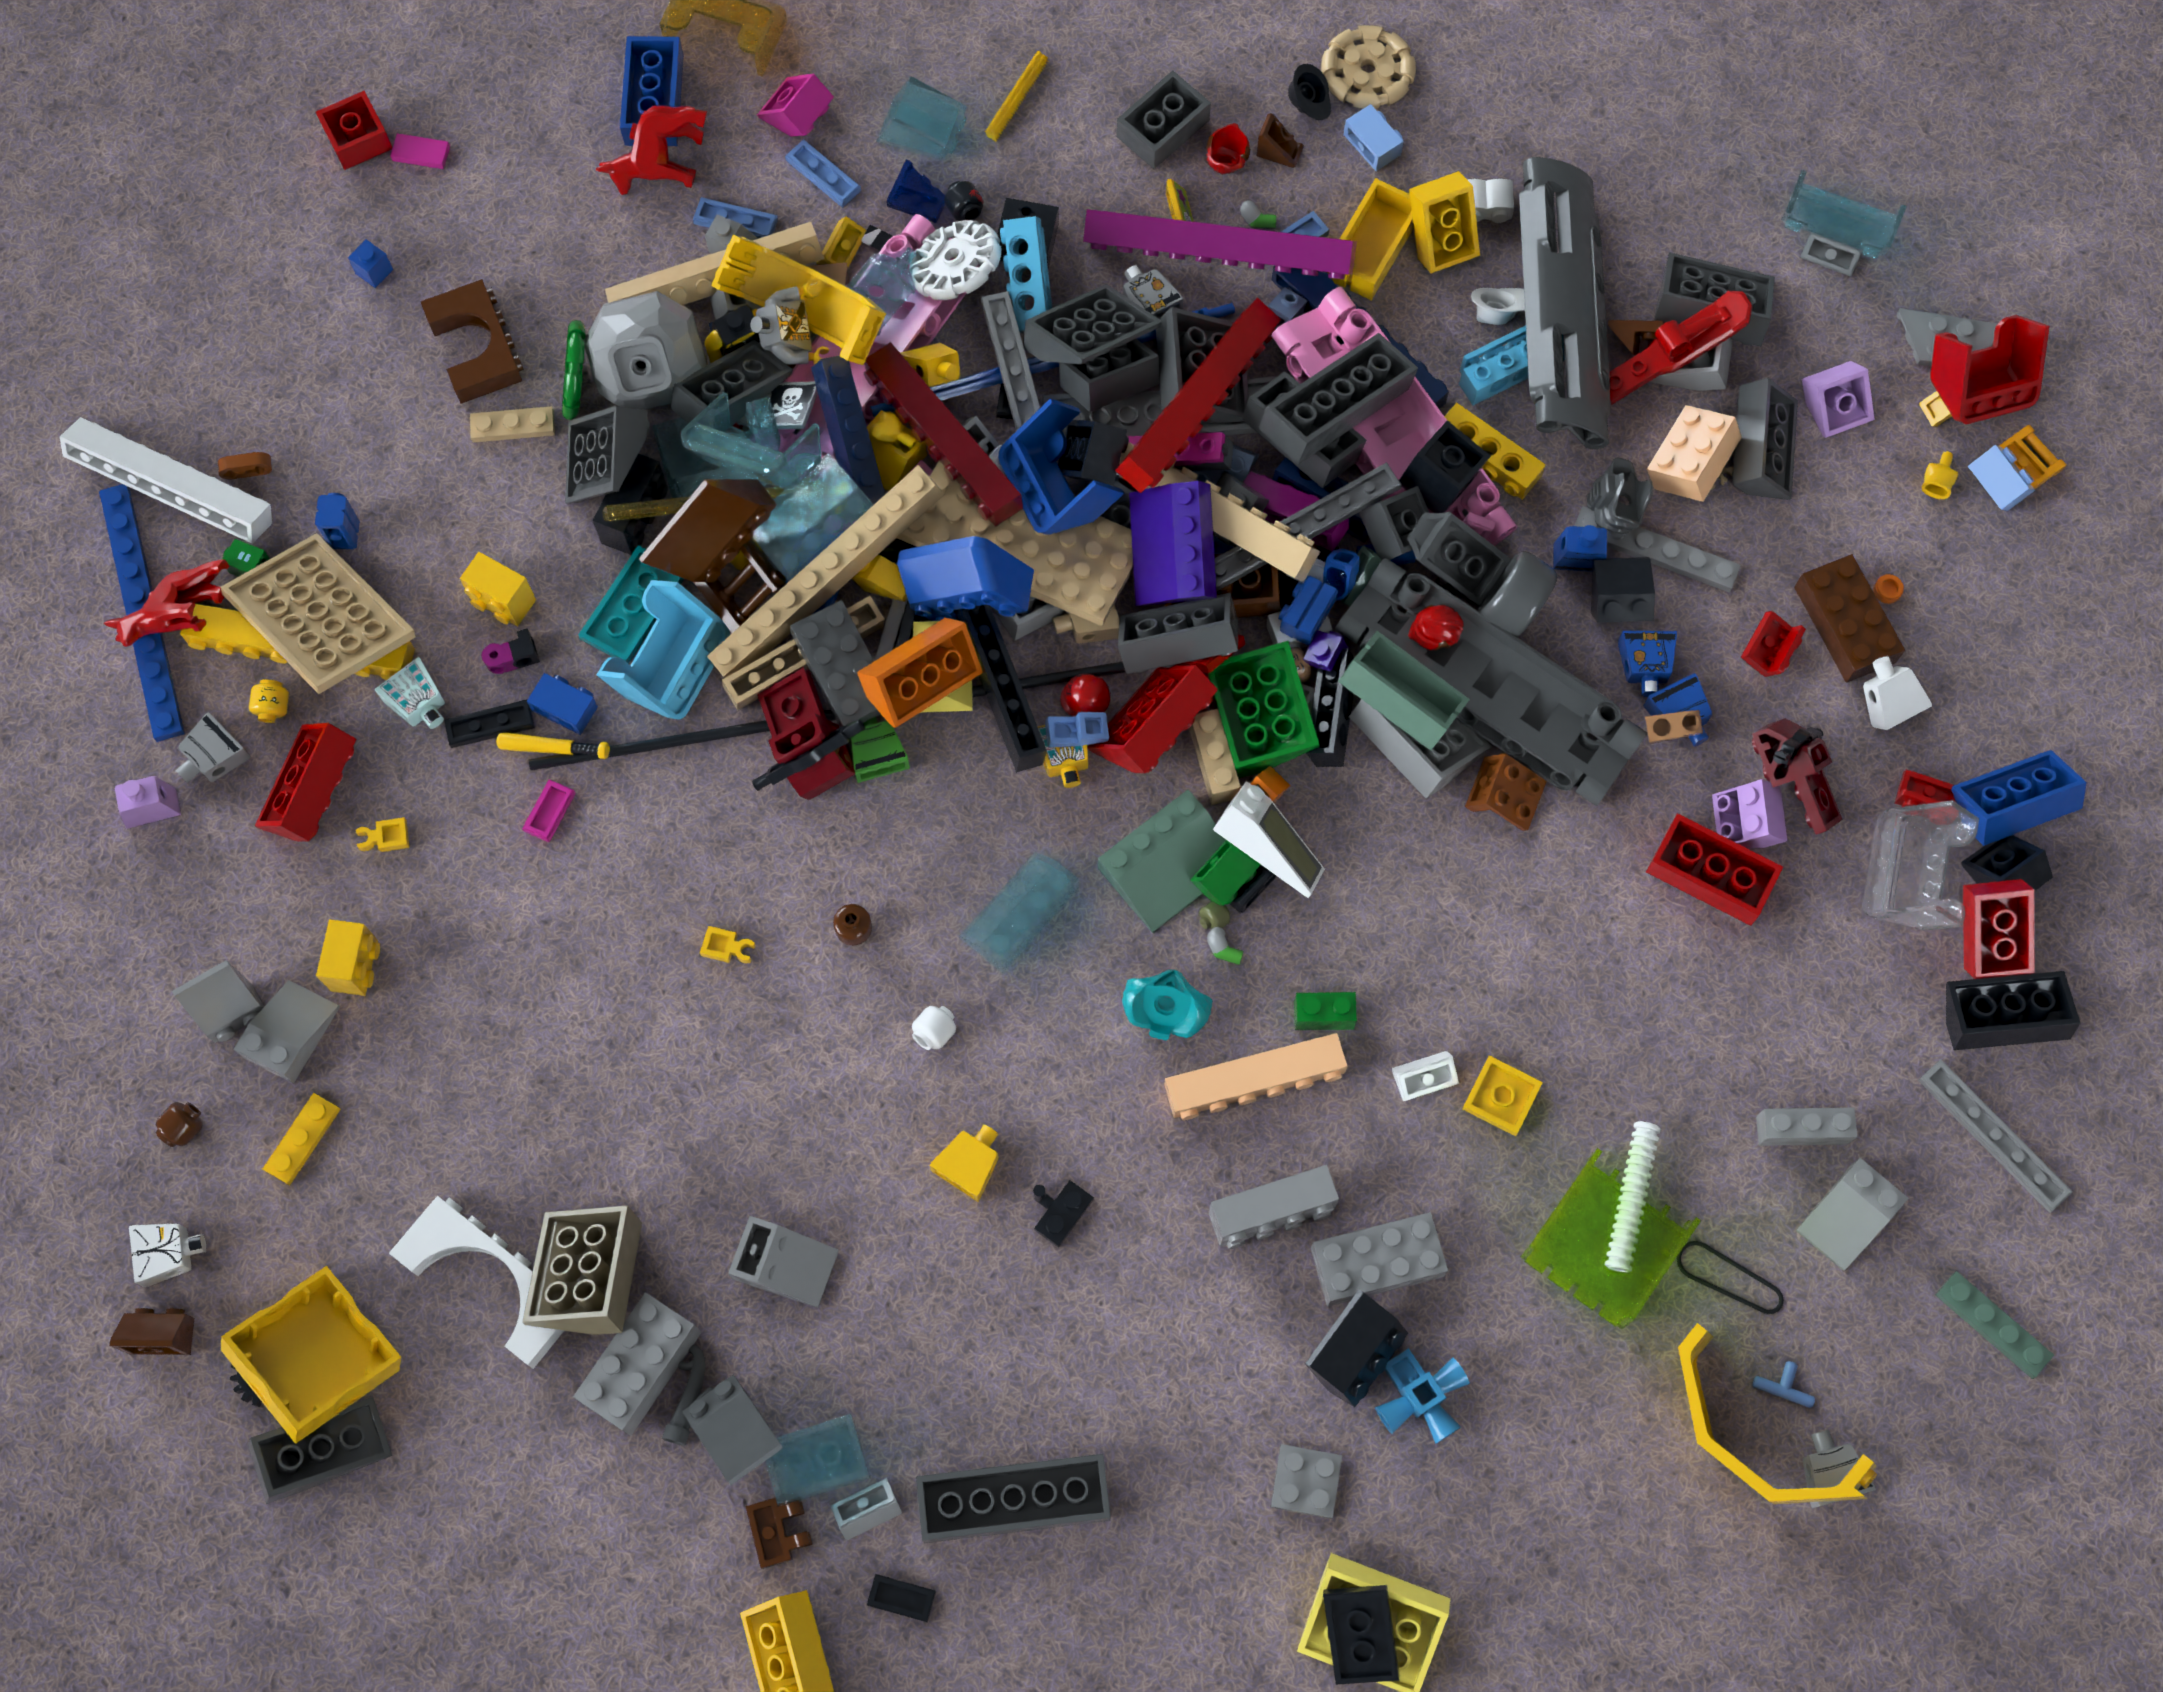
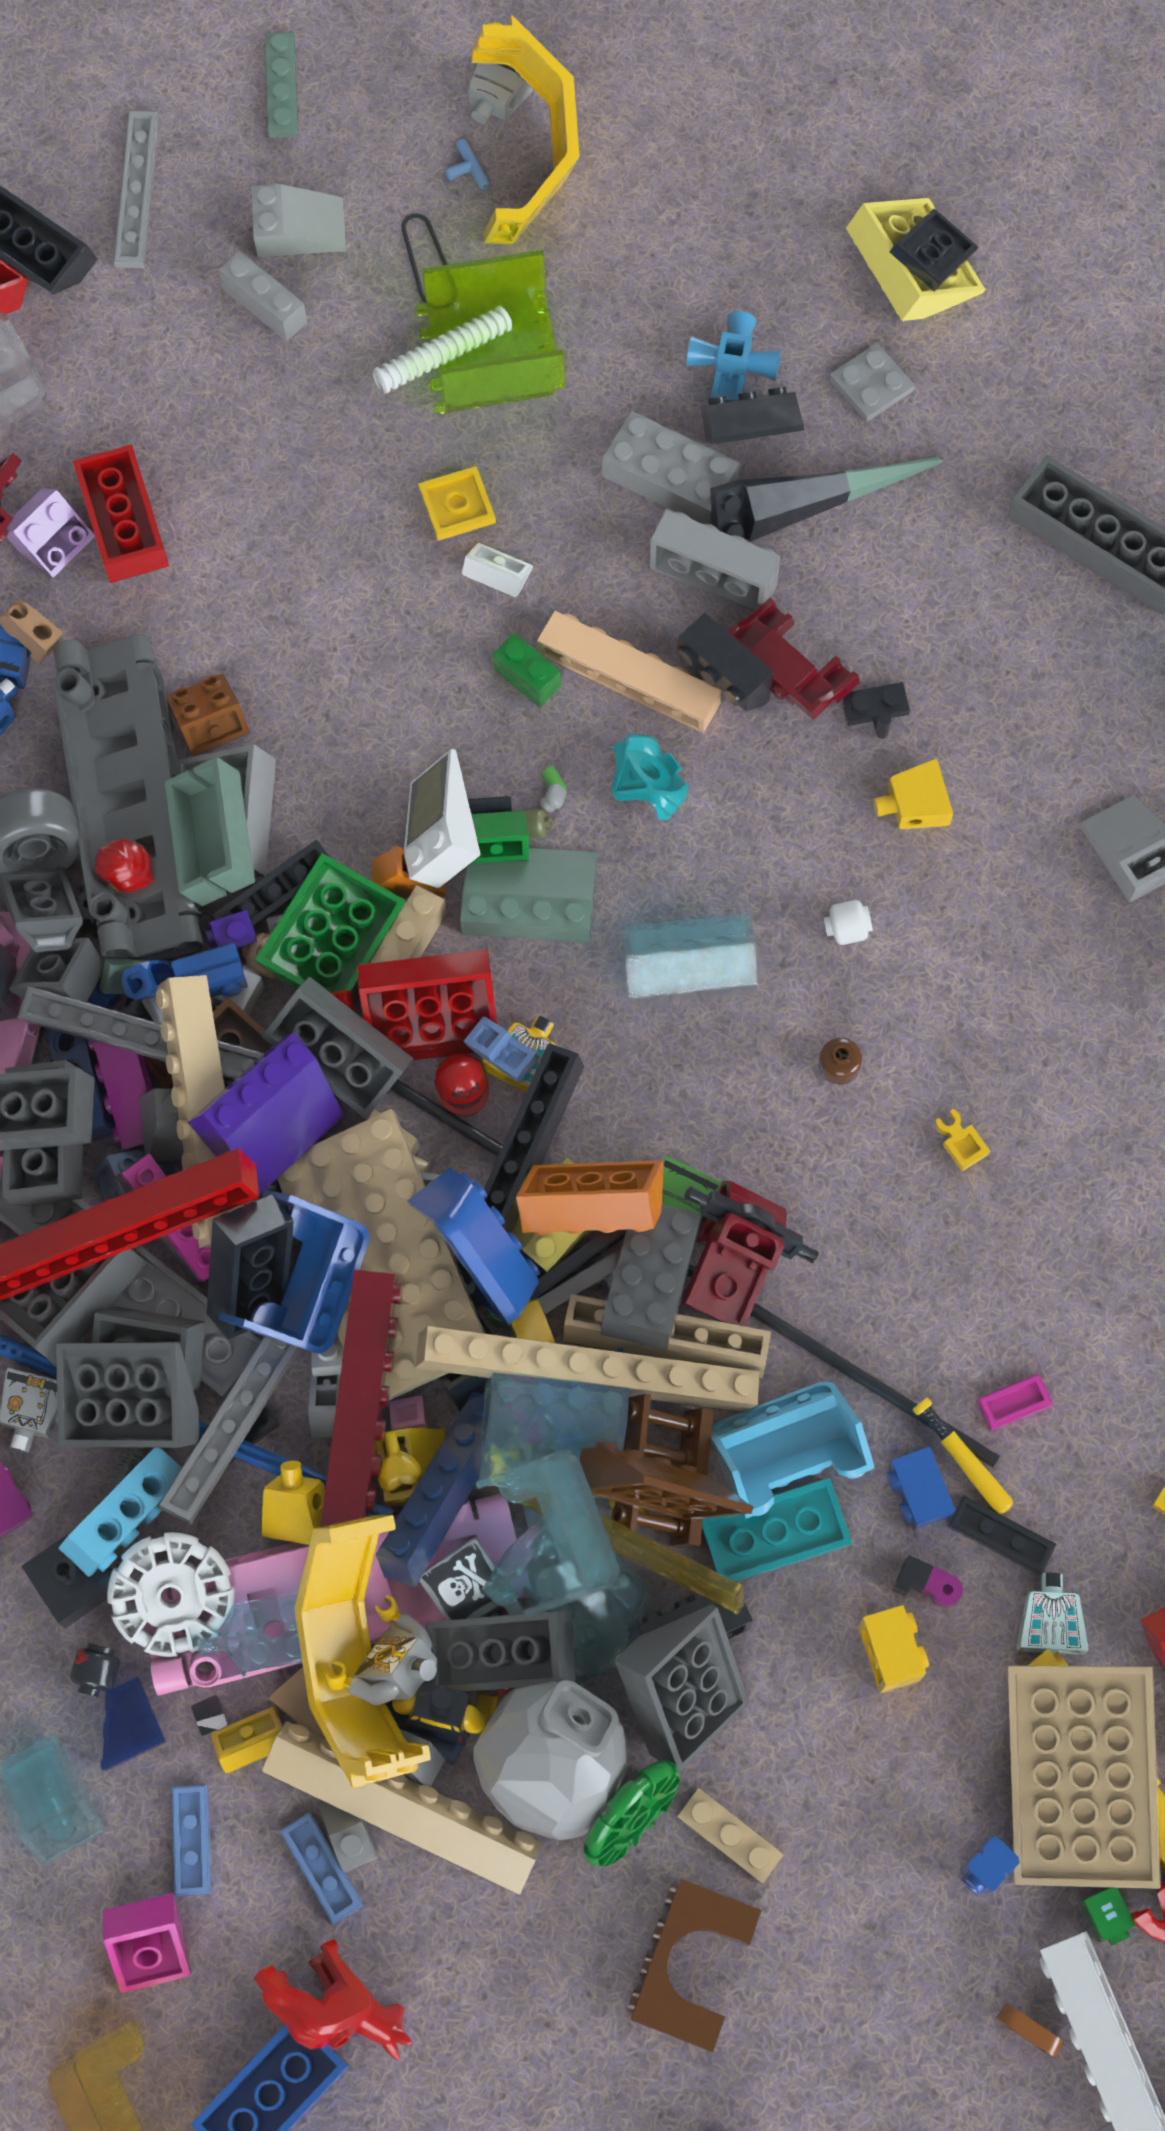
camera: 135 degrees left, 0 degrees up
(1151, 1174) = (794, 674): none -> dark red bracket
(1188, 1127) = (726, 663): none -> black slope
(1278, 1290) = (770, 504): none -> black plate

